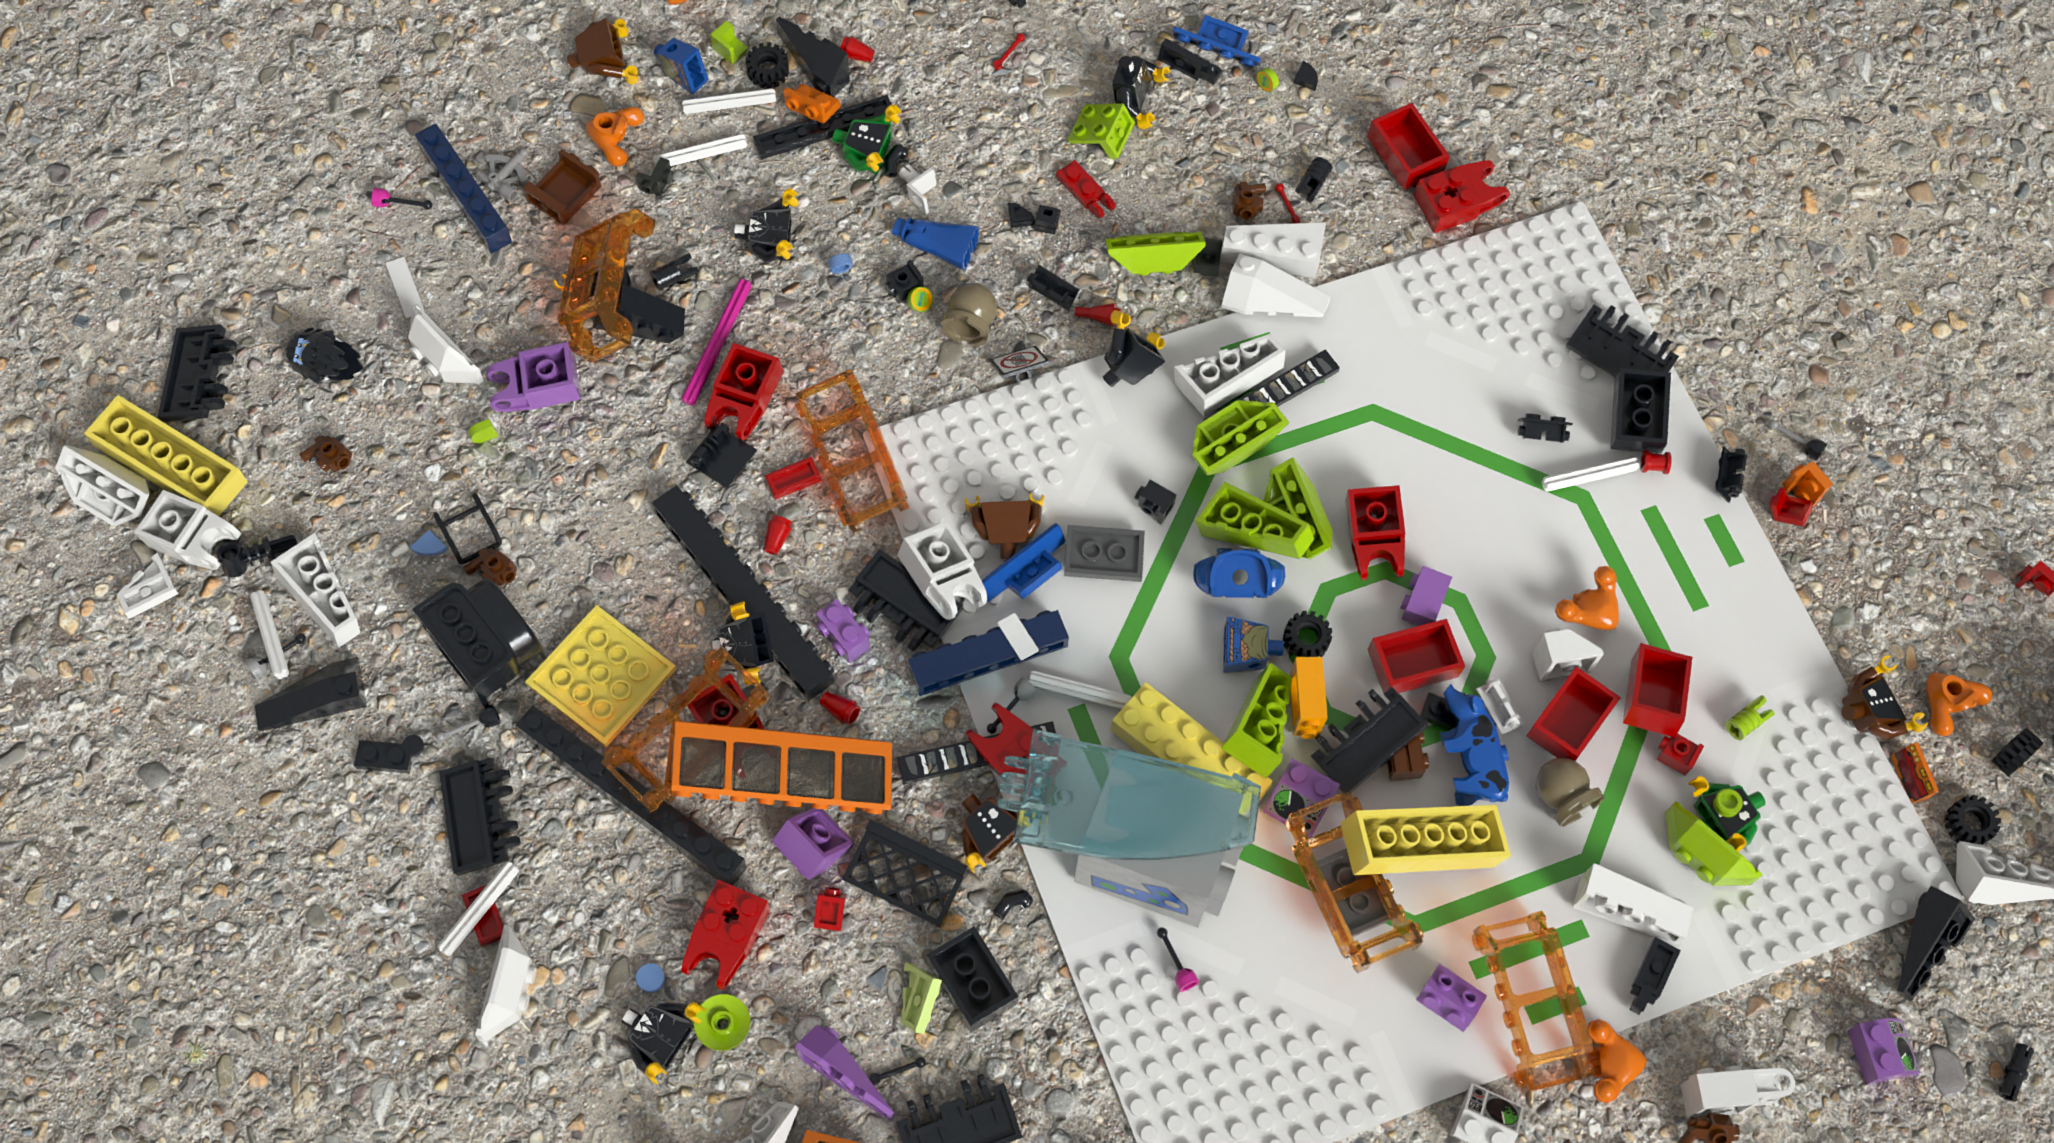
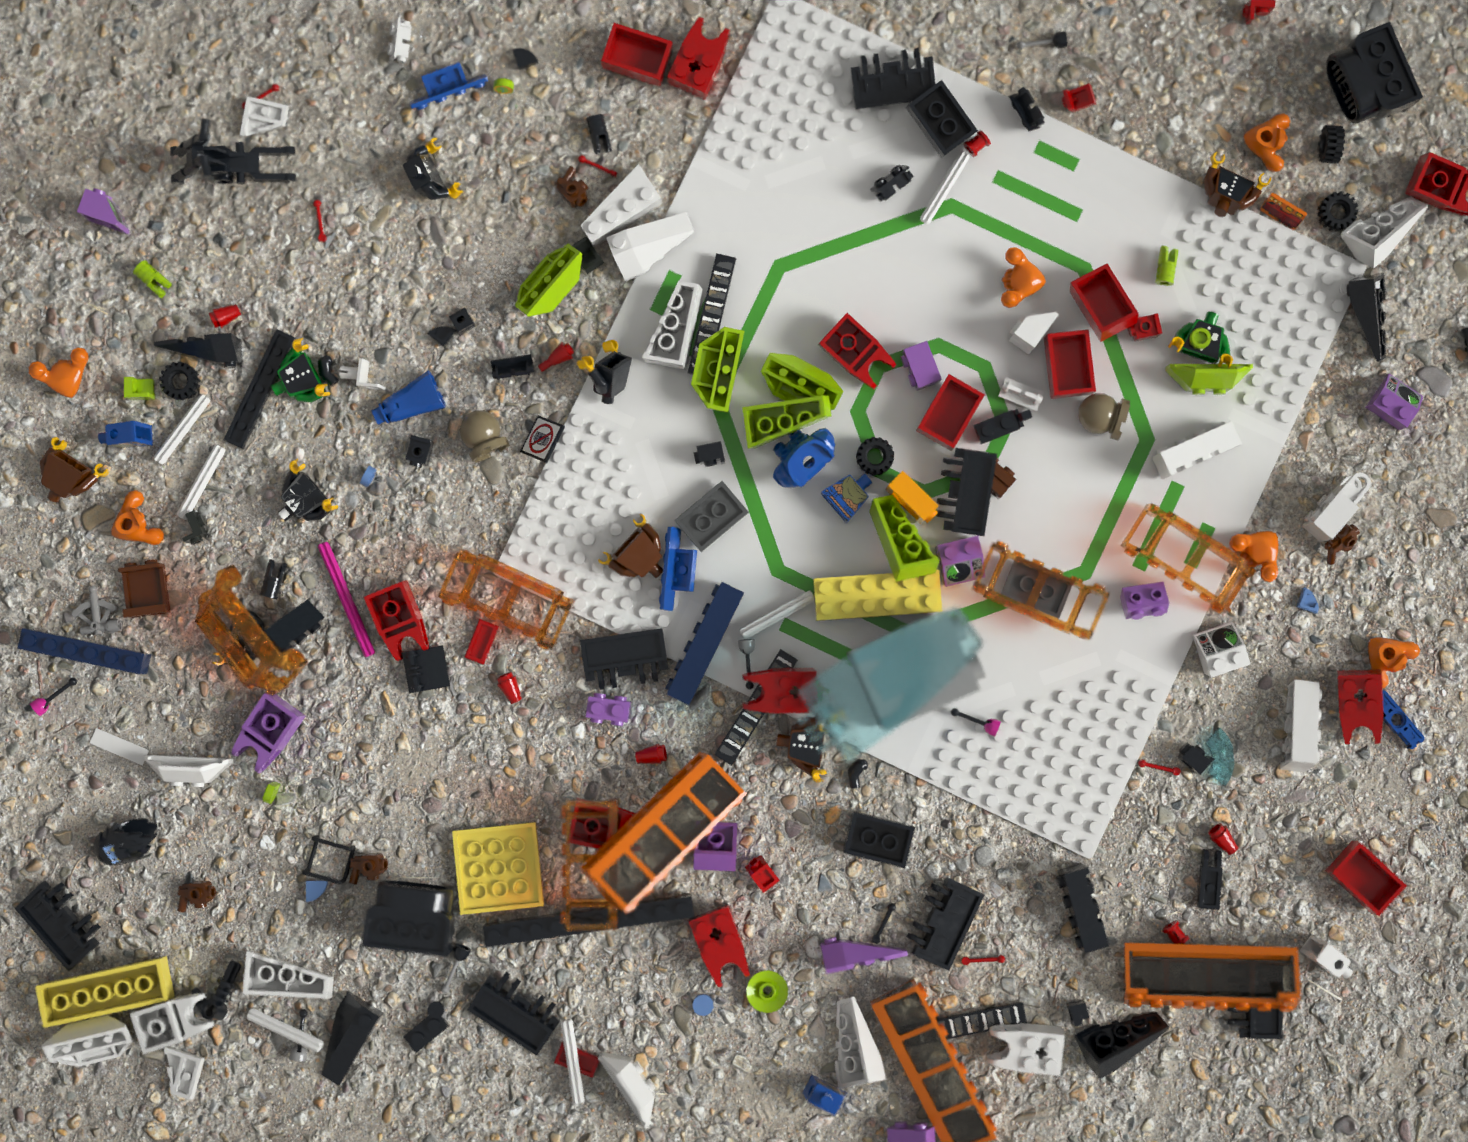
camera: 40 degrees left, 20 degrees up
(659, 1035) = (741, 1032): black torso -> none
(738, 584) = (525, 741): black brick -> none
(745, 640) = (564, 774): black torso -> none
(811, 102) = (236, 381): orange bracket -> none
(915, 851) = (776, 796): black fence -> none
(919, 998) = (859, 876): yellowish green wing -> none
(920, 299) = (440, 453): lime tile -> none
(942, 568) = (637, 621): white brick -> none
(1018, 636) = (715, 620): white sticker -> none
(1085, 189) = (463, 276): red hinge -> none
(1104, 125) = (433, 223): lime bracket -> none
(1188, 62) = (442, 121): black hinge -> none
(1424, 839) = (1055, 526): light yellow brick -> none
(1479, 749) = (1033, 435): blue animal -> none
(1653, 974) = (1239, 479): black hinge -> none
(1807, 483) = (1078, 74): orange bracket -> none

